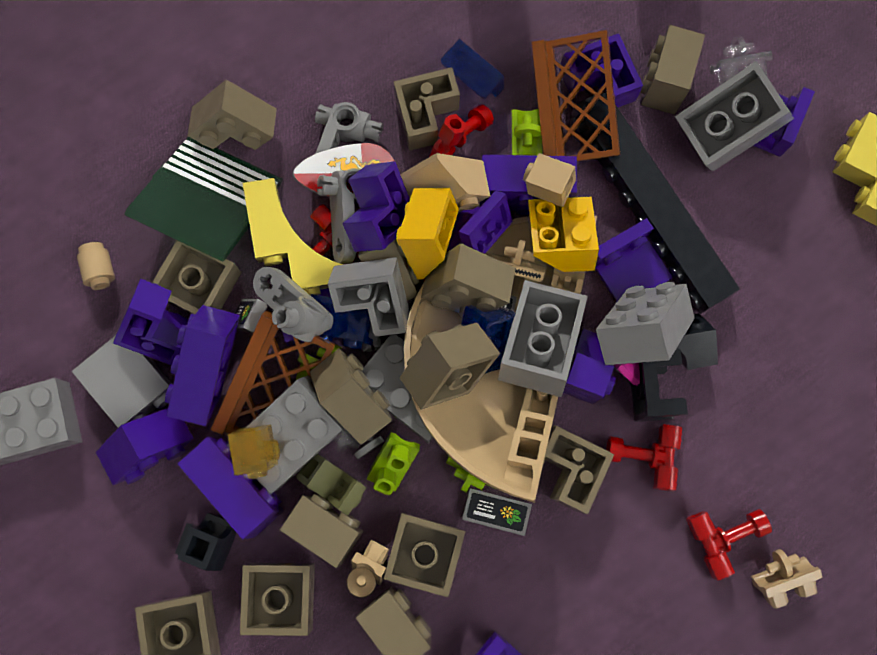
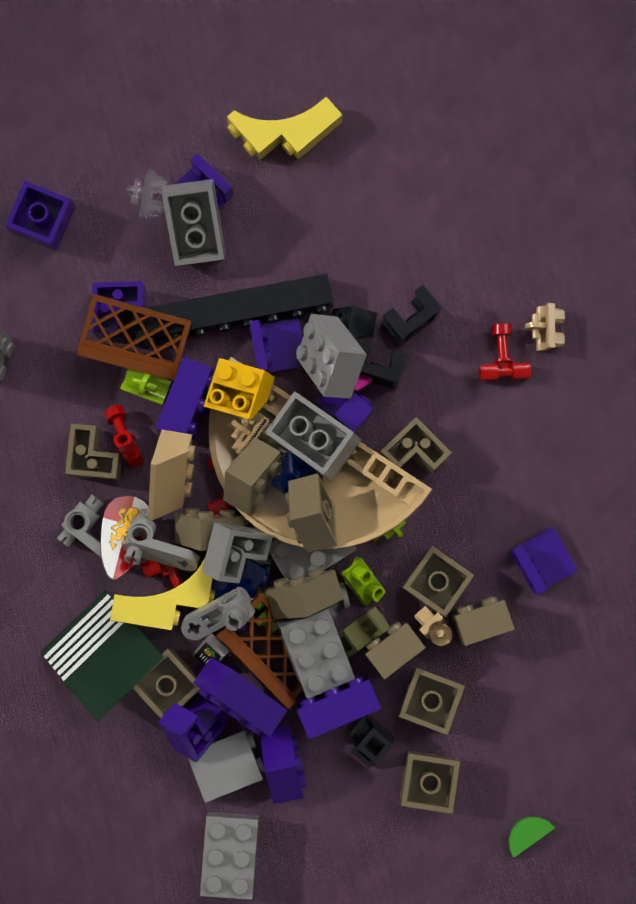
camera: 70 degrees left, 5 degrees up
(95, 265) = (124, 761): tan brick -> none
(234, 114) = (42, 612): dark tan brick -> none
(253, 451) = (321, 678): clear yellow brick -> none
(382, 206) = (169, 518): dark purple brick -> none
(427, 228) = (201, 491): yellow slope -> none
(473, 70) = (76, 407): clear blue bracket -> none
(482, 225) = (211, 456): dark purple bracket -> none
(497, 512) = (425, 518): tile -> none
(550, 179) = (197, 385): tan brick -> none
(659, 456) = (429, 382): red bar -> none
(671, 69) = (136, 252): dark tan brick -> none
(741, 422) = (427, 311): none -> black panel

